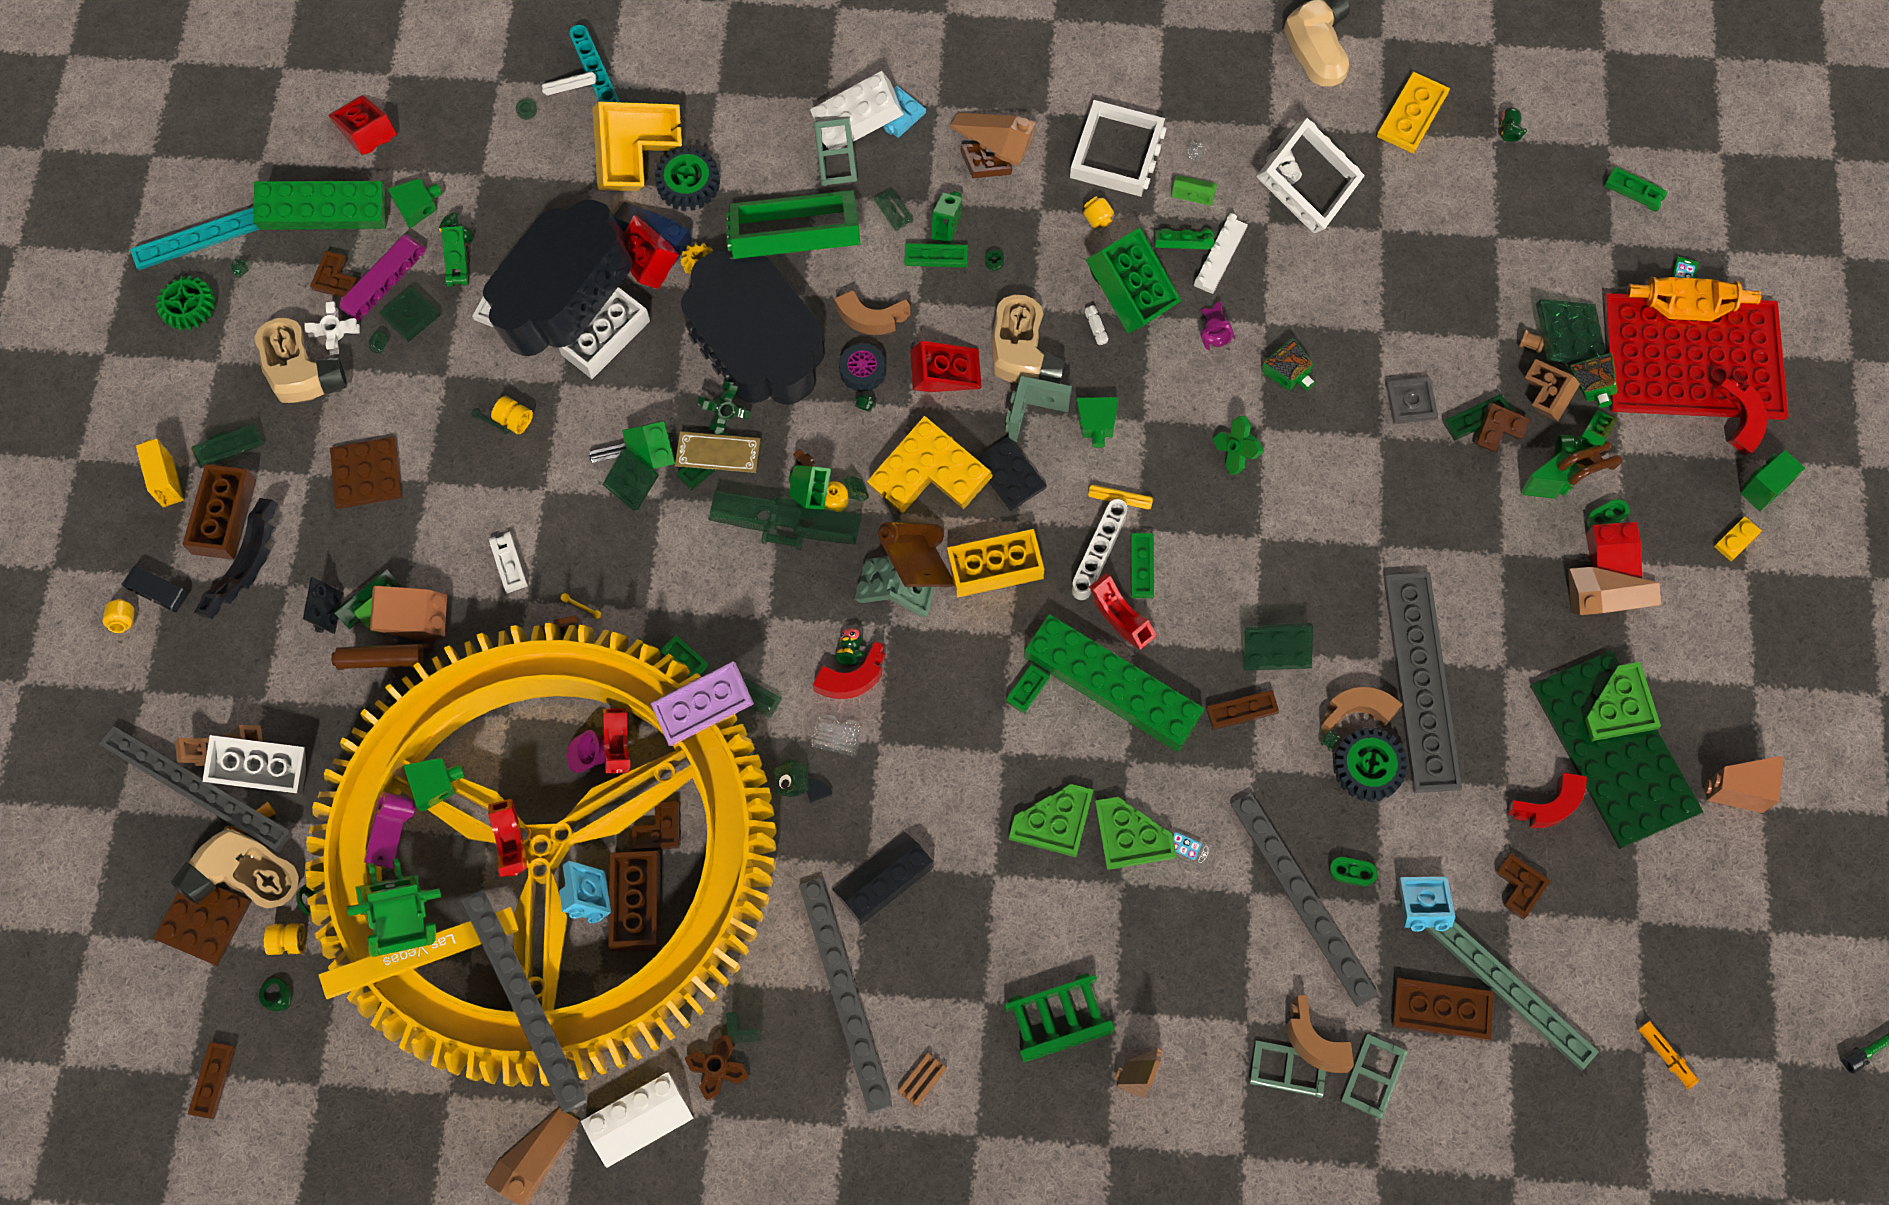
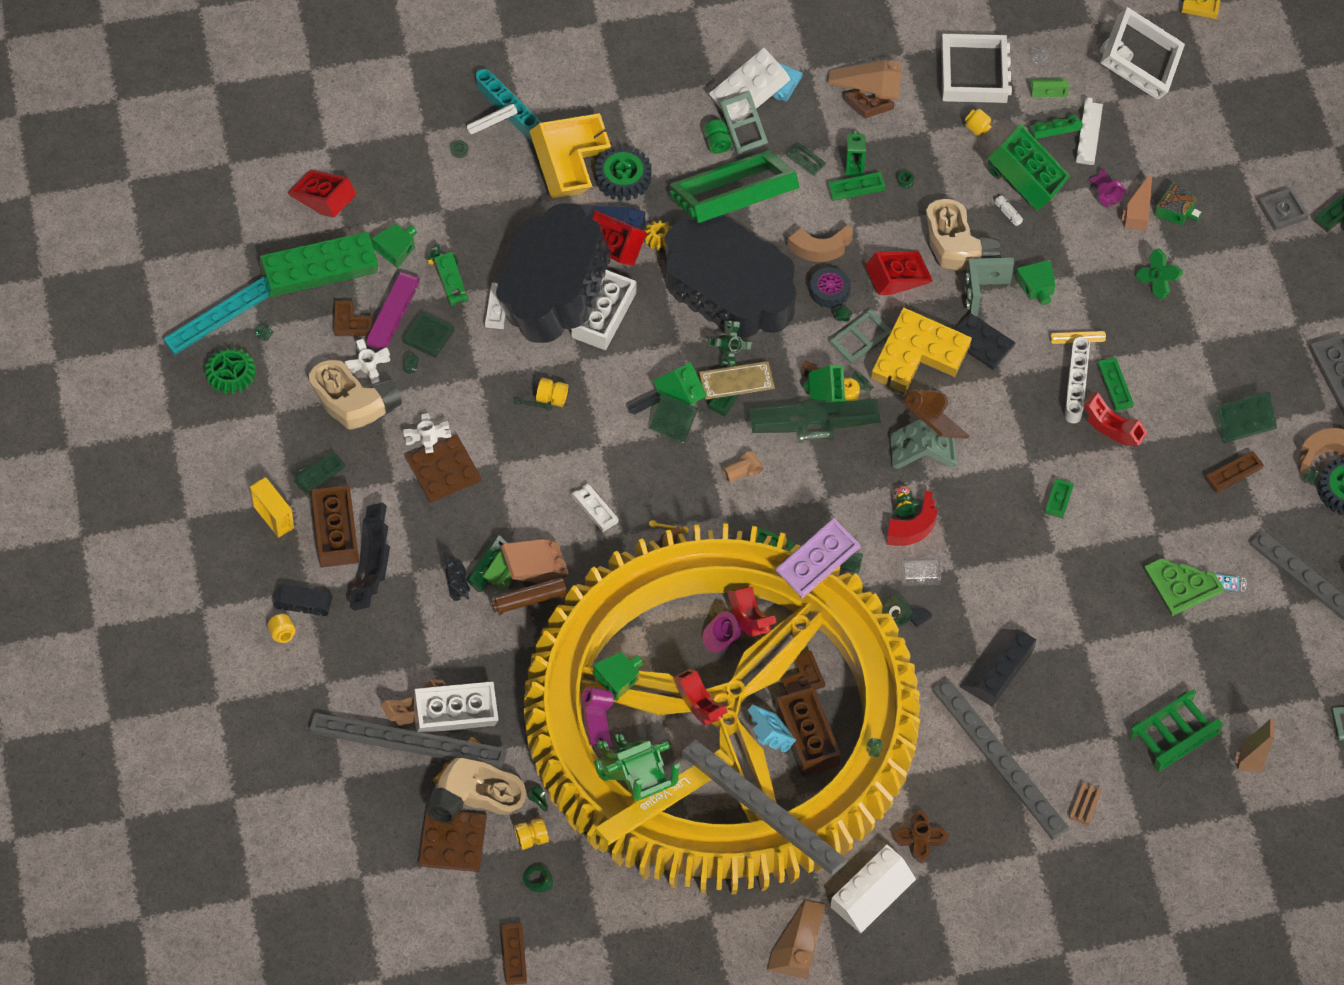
camera: 20 degrees left, 10 degrees down
(359, 428) = (427, 433): none -> white pin
(678, 960) = (874, 747): none -> clear green piece
(690, 557) = (747, 465): none -> medium nougat piece
(736, 1033) = (930, 803): clear green panel -> none
(803, 162) = (717, 136): none -> green wheel
(870, 421) = (868, 345): none -> sand green window
(995, 563) = (998, 409): yellow brick -> none
(1055, 821) = (1118, 590): bright green plate -> none
(1113, 683) = (1126, 476): green brick -> none
(1244, 357) = (1138, 207): none -> nougat slope

